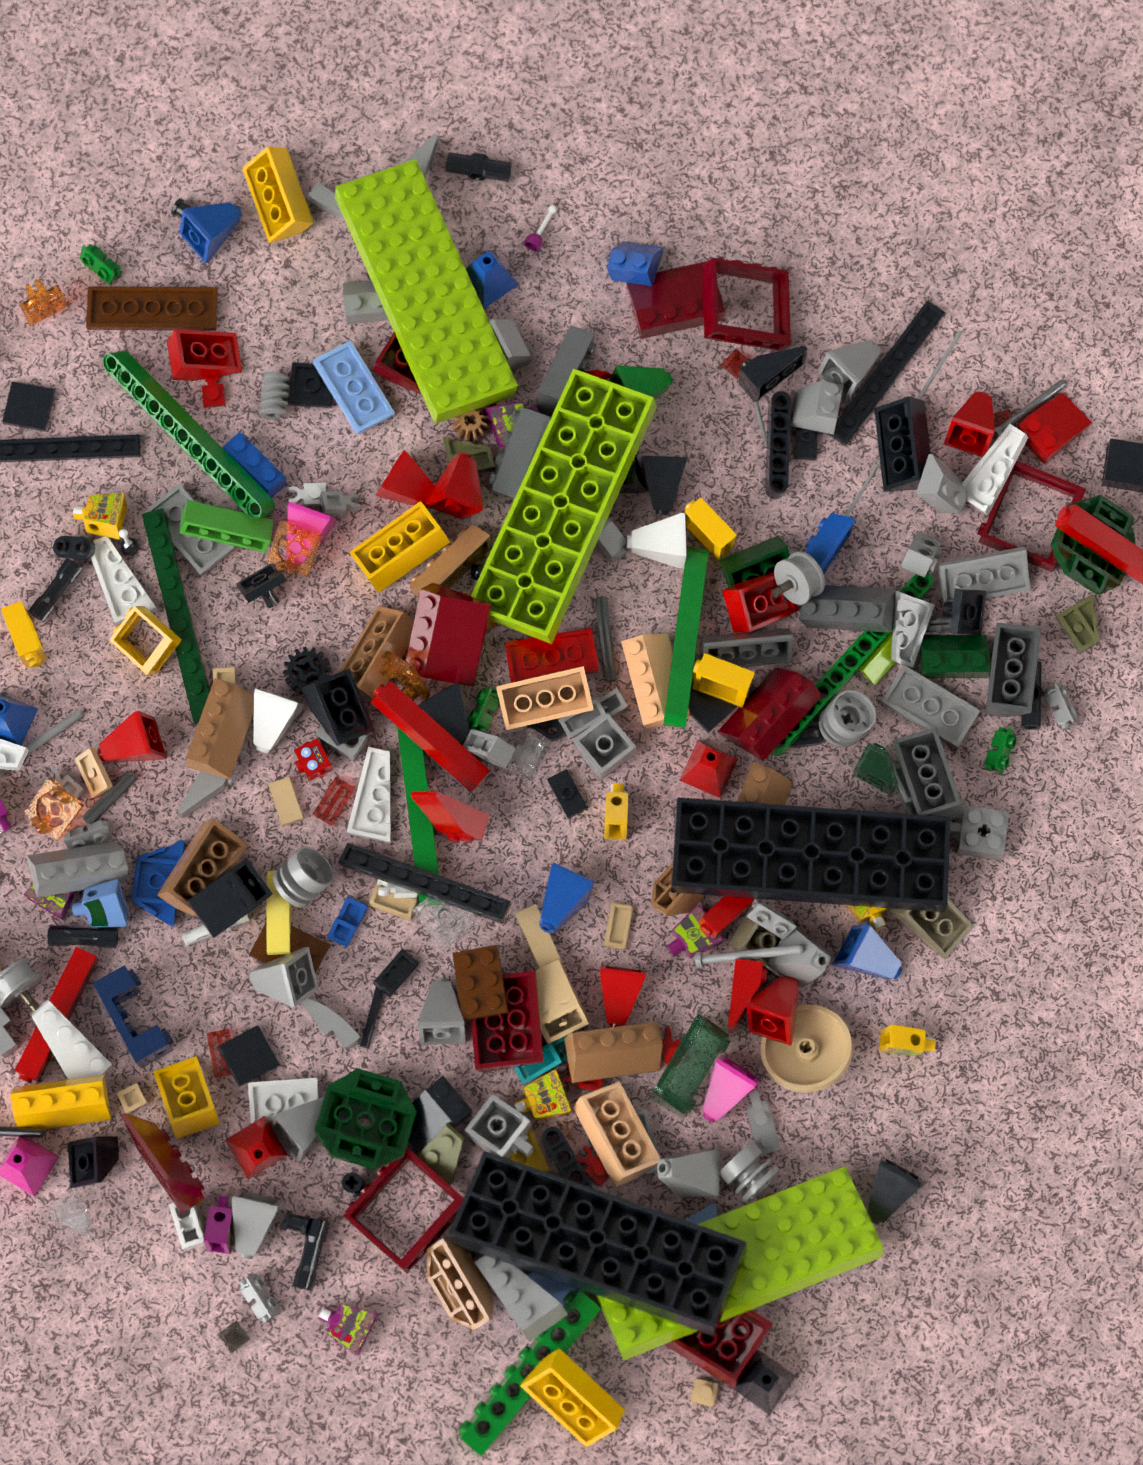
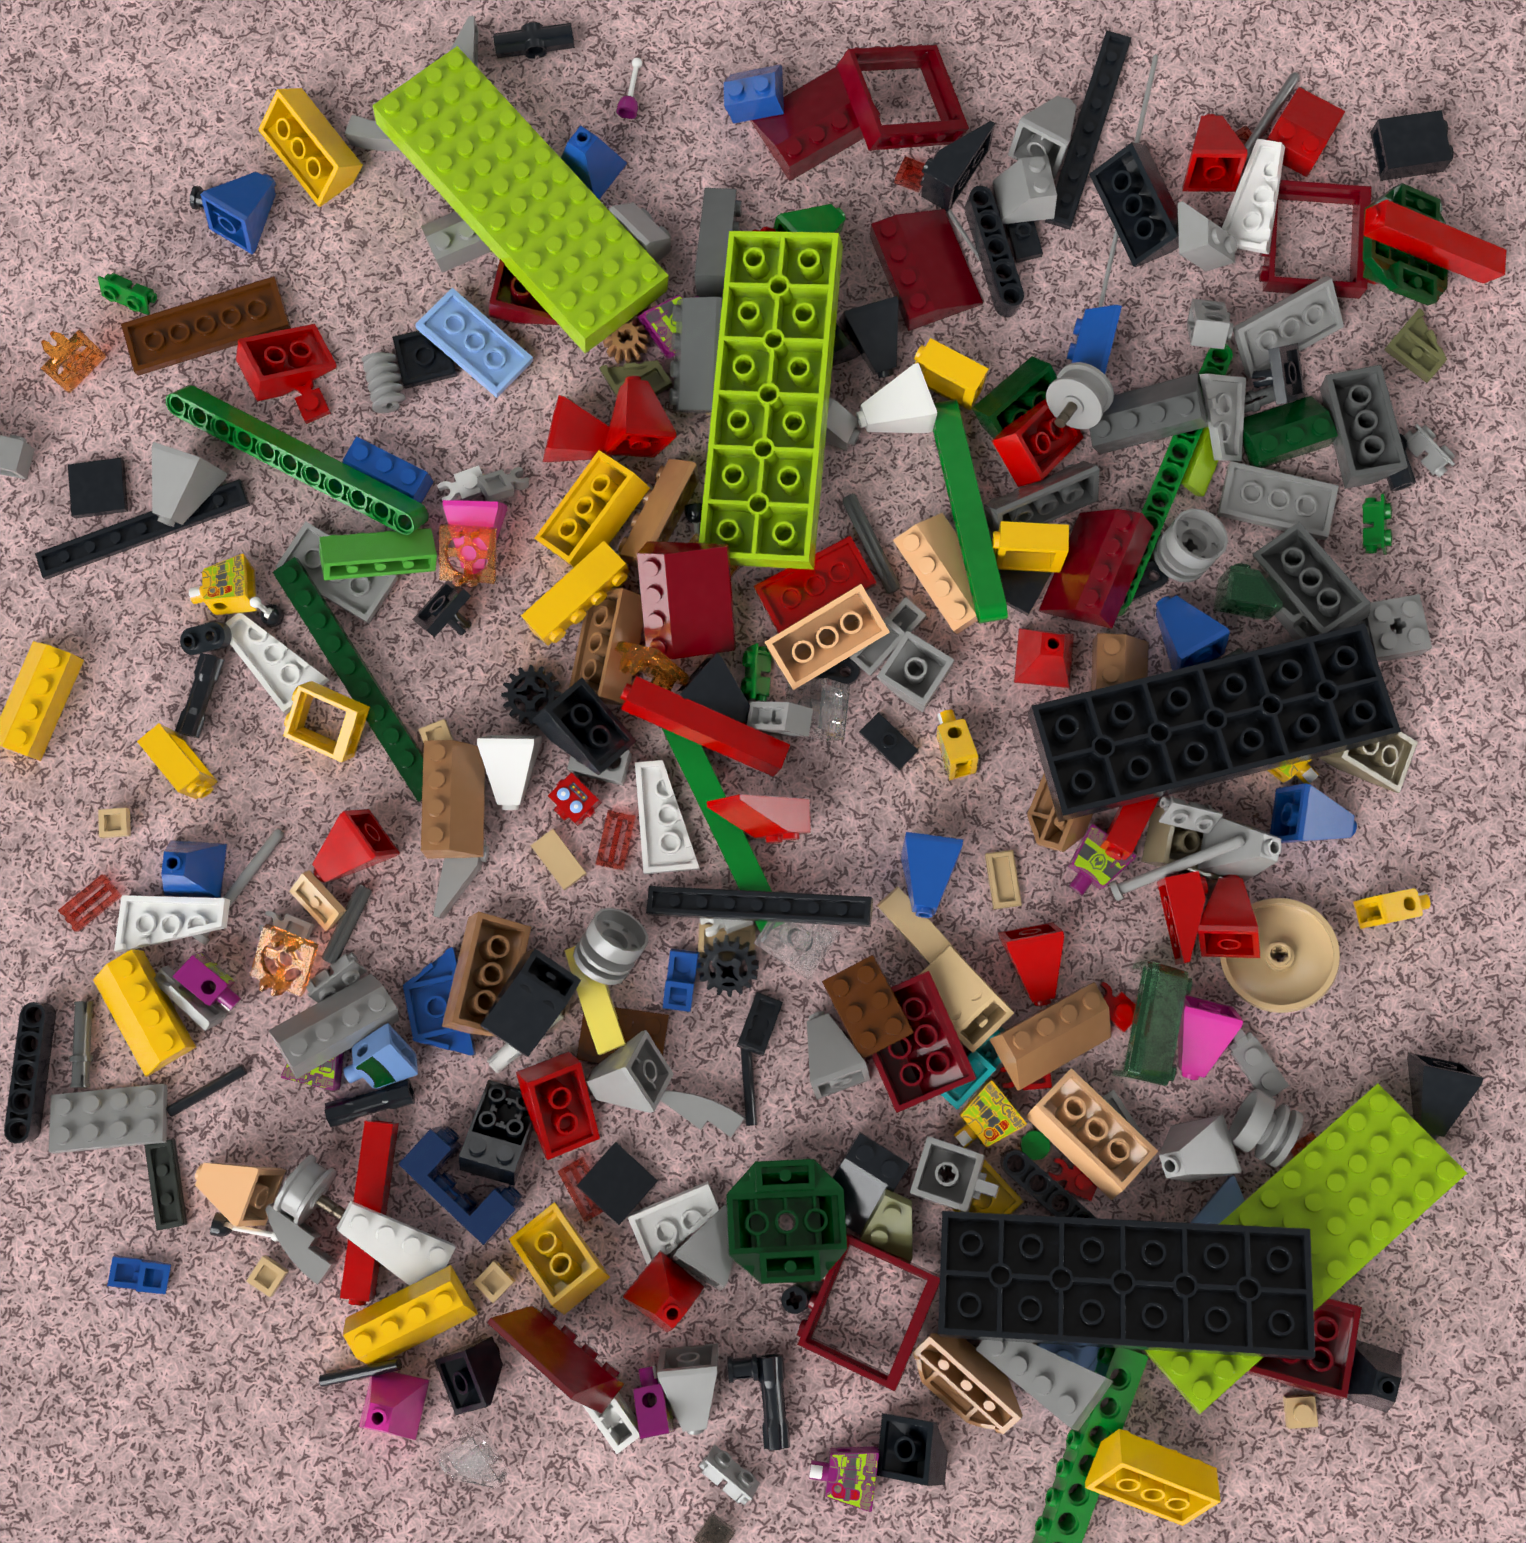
camera: 10 degrees left, 5 degrees up
(94, 424) = (180, 483): none -> light grey slope
(173, 990) = (497, 1135): none -> black slope
(224, 983) = (558, 1104): none -> red slope
(366, 604) = (575, 594): none -> yellow slope
(390, 929) = (727, 976): none -> black gear
(402, 1322) = (911, 1451): none -> black slope
(573, 1131) = (1035, 1145): none -> green tile
(721, 439) = (924, 266): none -> dark red slope
(824, 784) = (1189, 633): none -> blue slope

